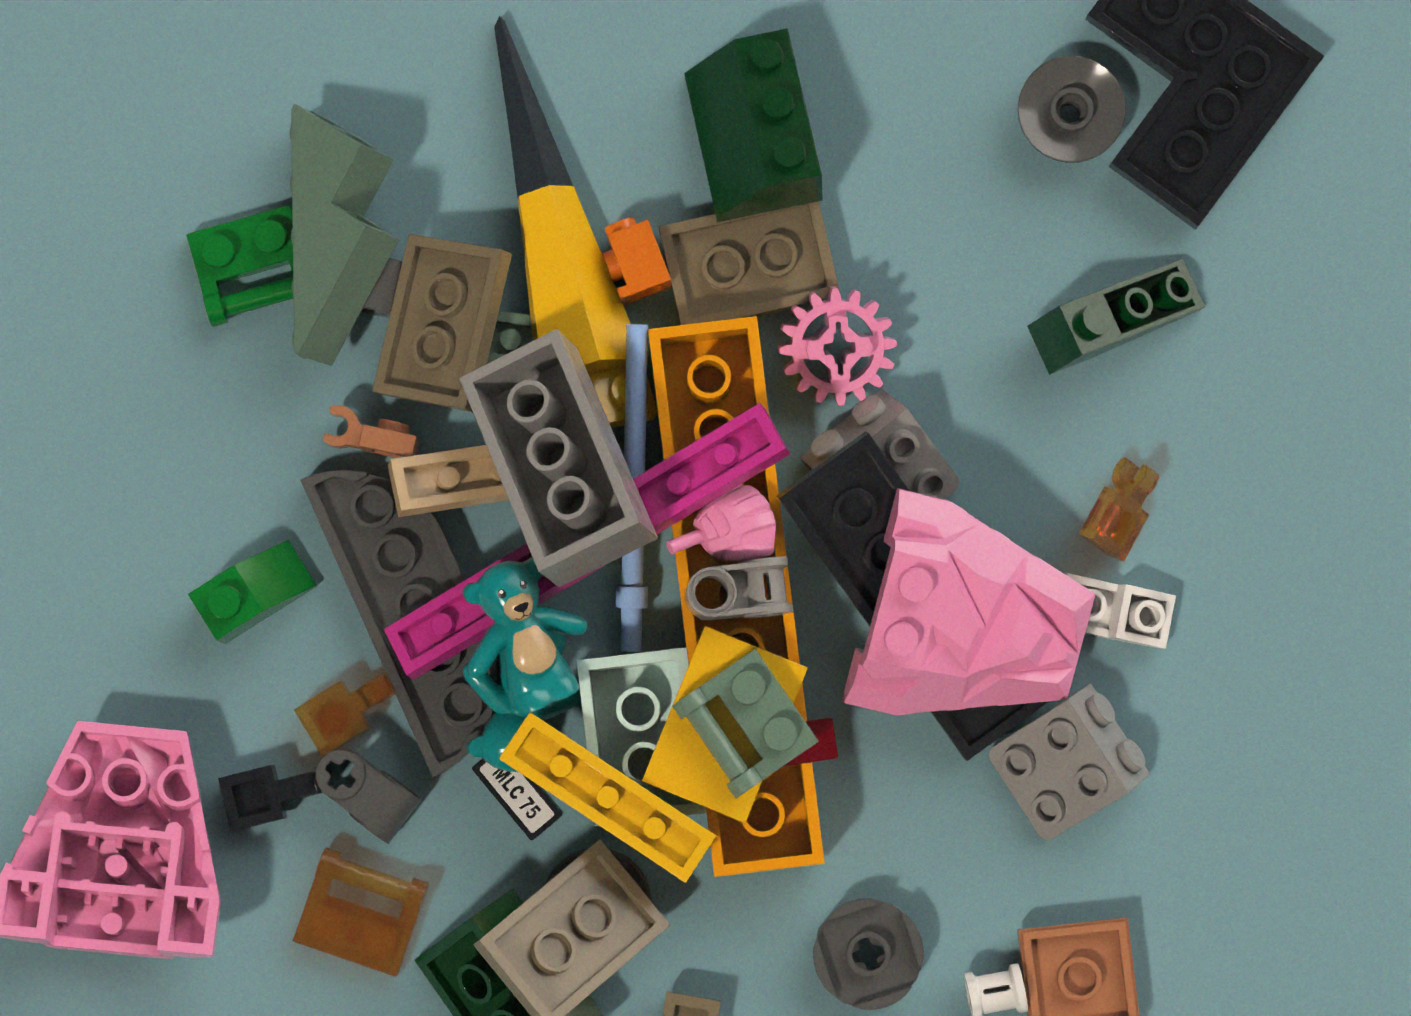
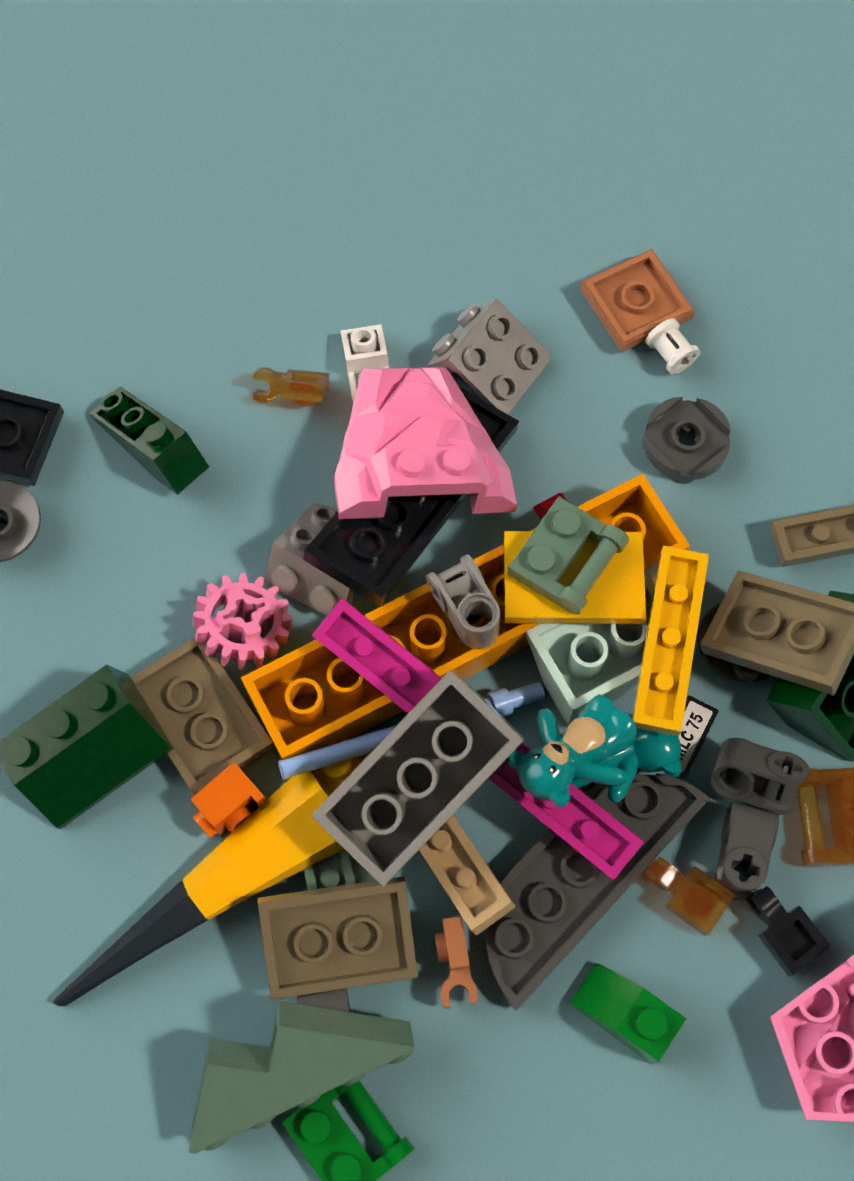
camera: 110 degrees left, 15 degrees down
(437, 836) = (755, 775): none -> dark grey piece
(732, 527) = (419, 626): bright pink piece -> none

